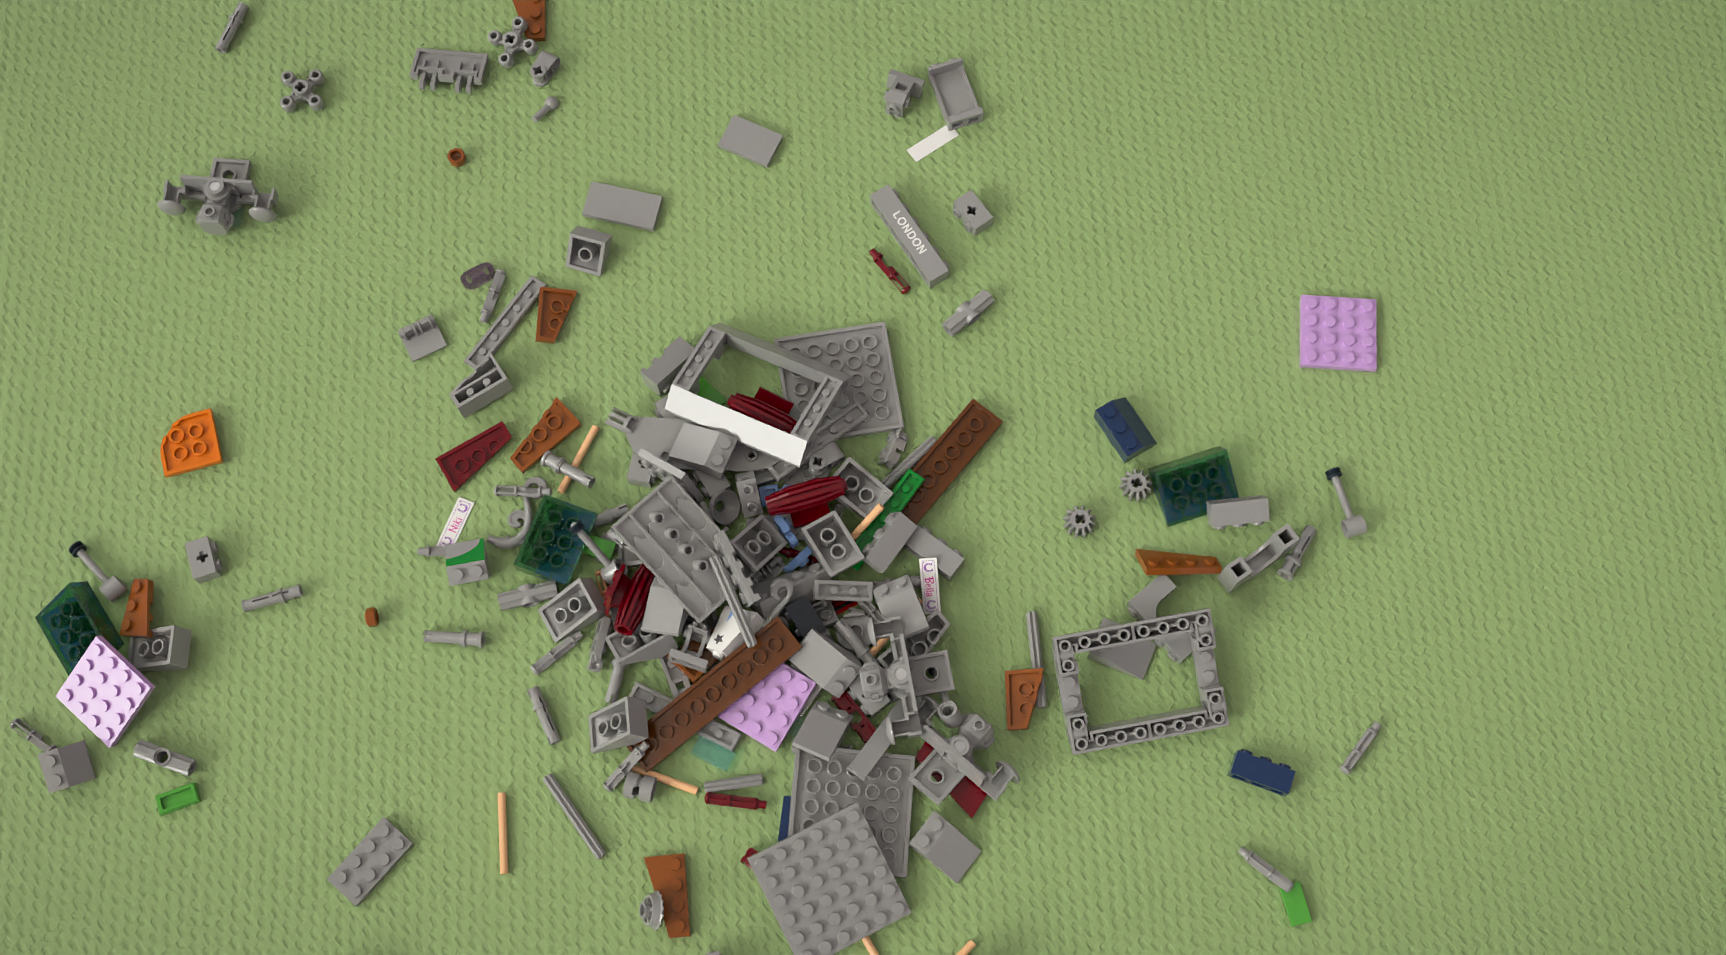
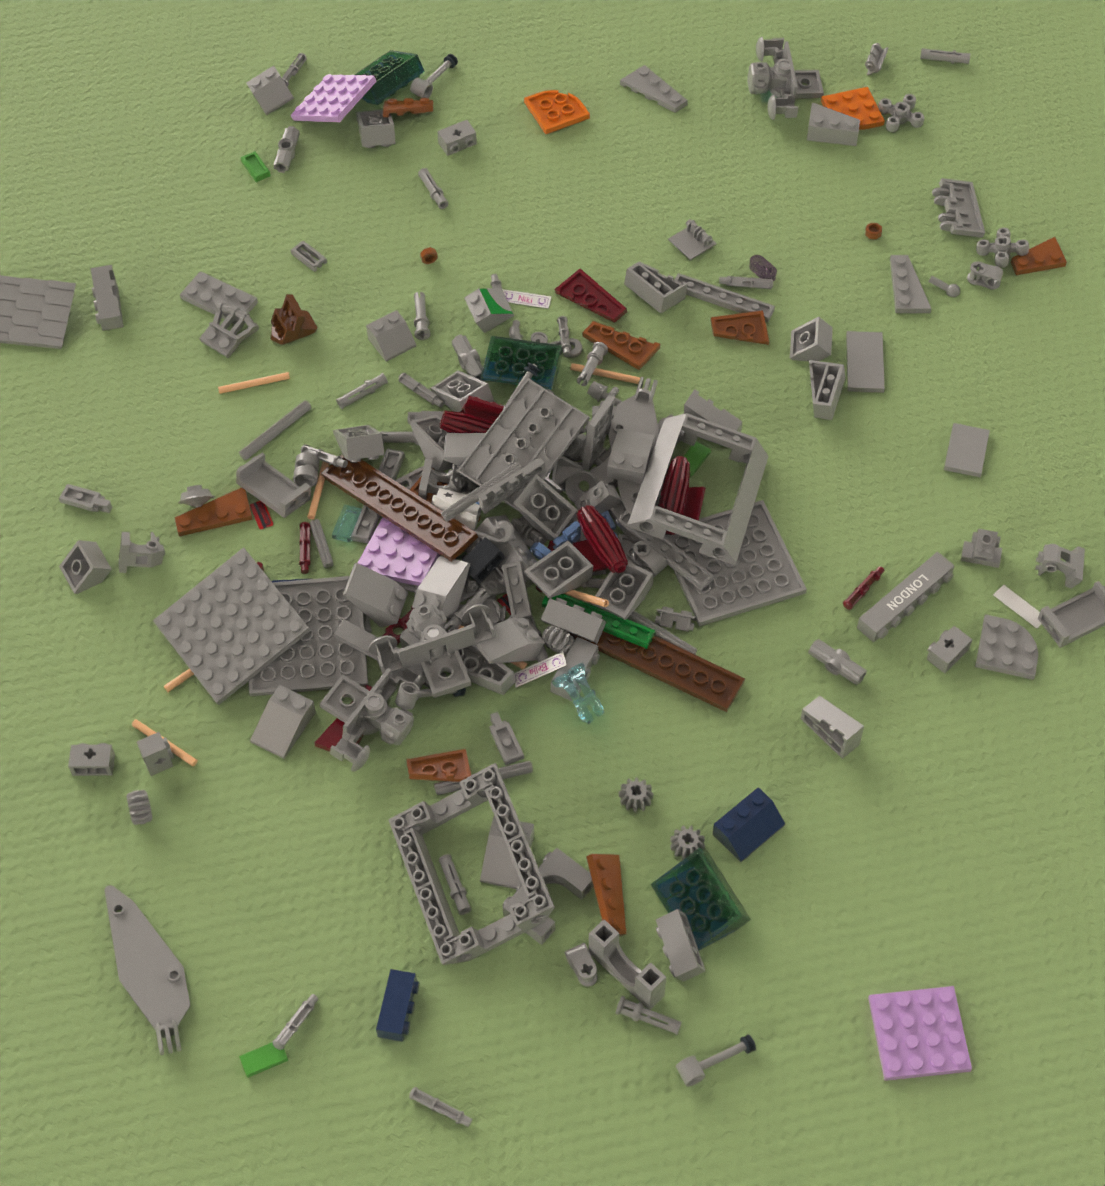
camera: 80 degrees right, 15 degrees down
(179, 338) = (654, 88): none -> light grey wing
(217, 95) = (875, 59): none -> light grey hinge
(279, 136) = (857, 104): none -> orange plate
(302, 163) = (832, 126): none -> light grey wedge
(339, 757) = (306, 258): none -> light grey tile
(433, 781) = (291, 322): none -> reddish brown piece
(434, 863) = (220, 338): none -> light grey plate
(477, 674) = (390, 336): none -> light grey slope
(540, 144) = (907, 290): none -> light grey wing
(605, 468) = (598, 392): none -> light grey piece
(652, 249) = (826, 387): none -> light grey wedge
(653, 826) = (272, 486): none -> light grey panel
(681, 843) = (261, 515): none -> sticker
(873, 149) = (983, 549): none -> light grey tile
(903, 562) = (557, 639): none -> light grey gear
(957, 562) = (565, 681): none -> clear light blue piece
(976, 165) = (1007, 648): none -> light grey plate
(999, 632) = (505, 740): none -> light grey hinge
(1038, 331) = (833, 726): none -> light grey wedge
(1153, 701) = (457, 892): none -> light grey pin
(1238, 600) = (581, 962): none -> light grey piece

